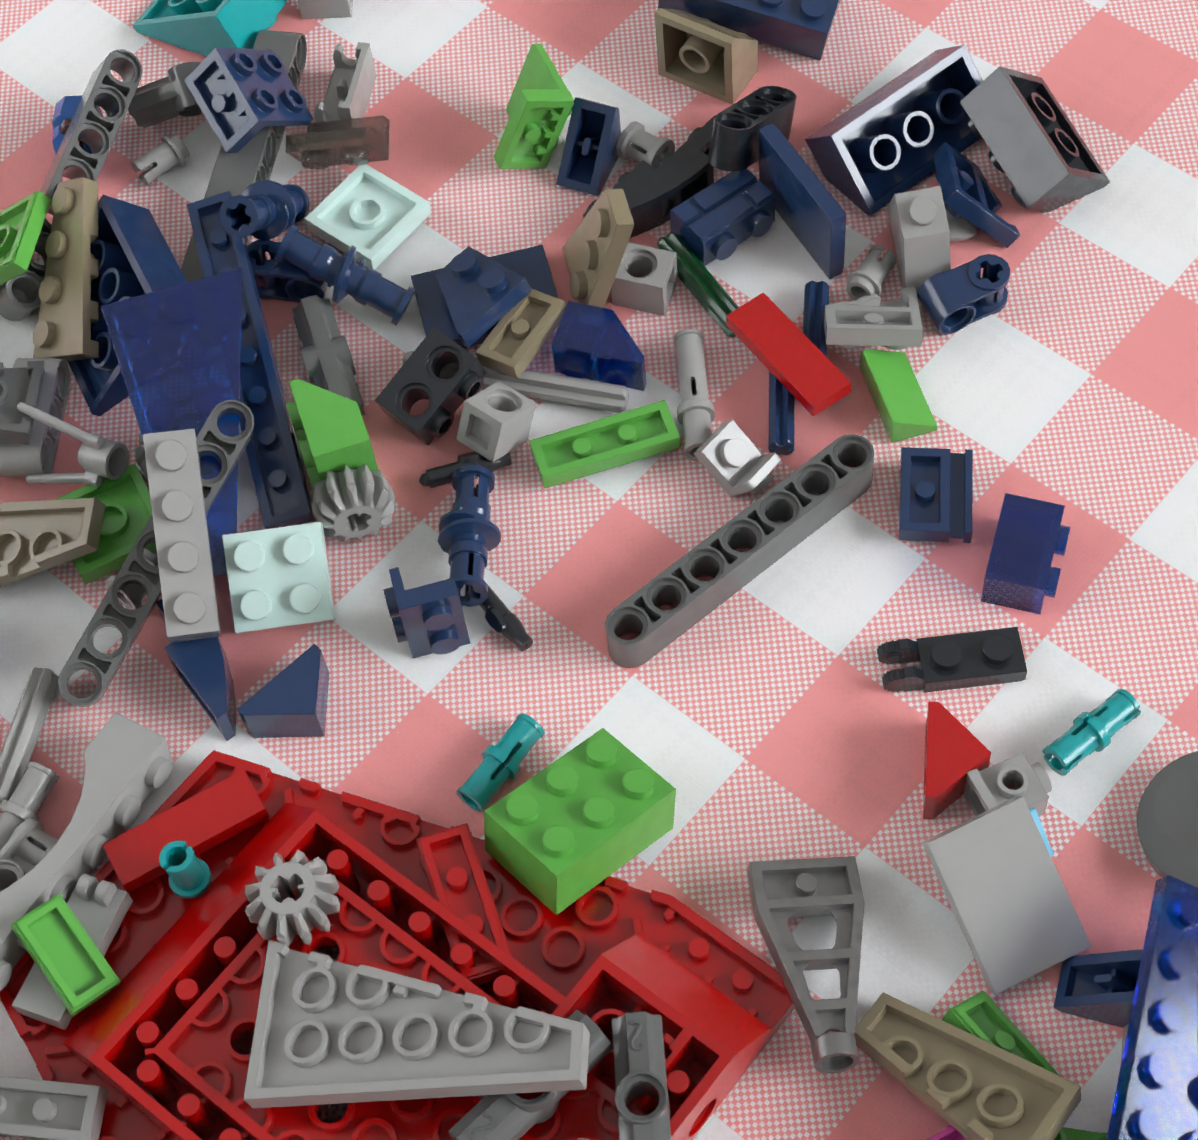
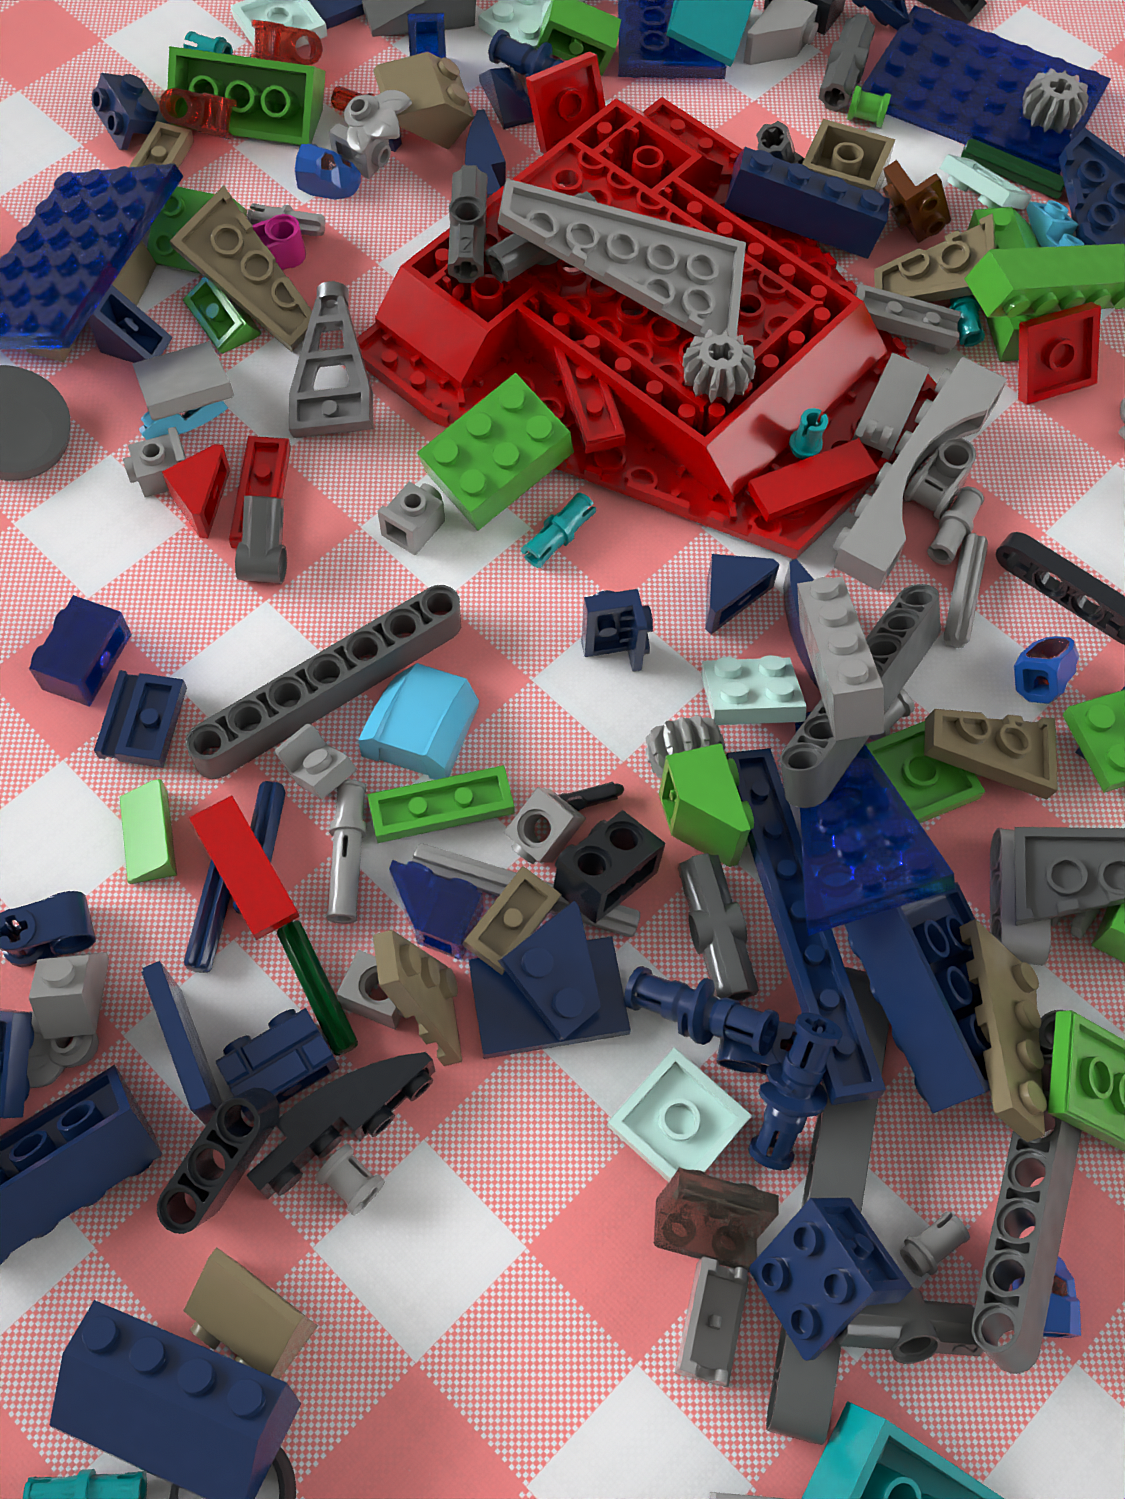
camera: 175 degrees right, 5 degrees up
(66, 954) = (894, 382): bright green tile -> none
(96, 454) = (942, 818): light grey plant -> none
(468, 532) = (574, 714): dark blue piece -> none
(505, 621) = (553, 653): black piece -> none
(535, 114) = (461, 1220): bright green bracket -> none
(589, 146) = (416, 1179): dark blue slope -> none
(638, 518) = (420, 721): none -> medium azure slope
(691, 738) = (412, 517): none -> light grey brick
(849, 690) = (261, 552): none -> dark grey piece
(871, 274) = (129, 979): light grey pin -> none
(873, 323) = (143, 898): light grey wing -> none
(874, 783) = (261, 475): none -> red tile
(954, 661) = (169, 577): black hinge -> none
(1091, 731) = (76, 505): teal pin -> none

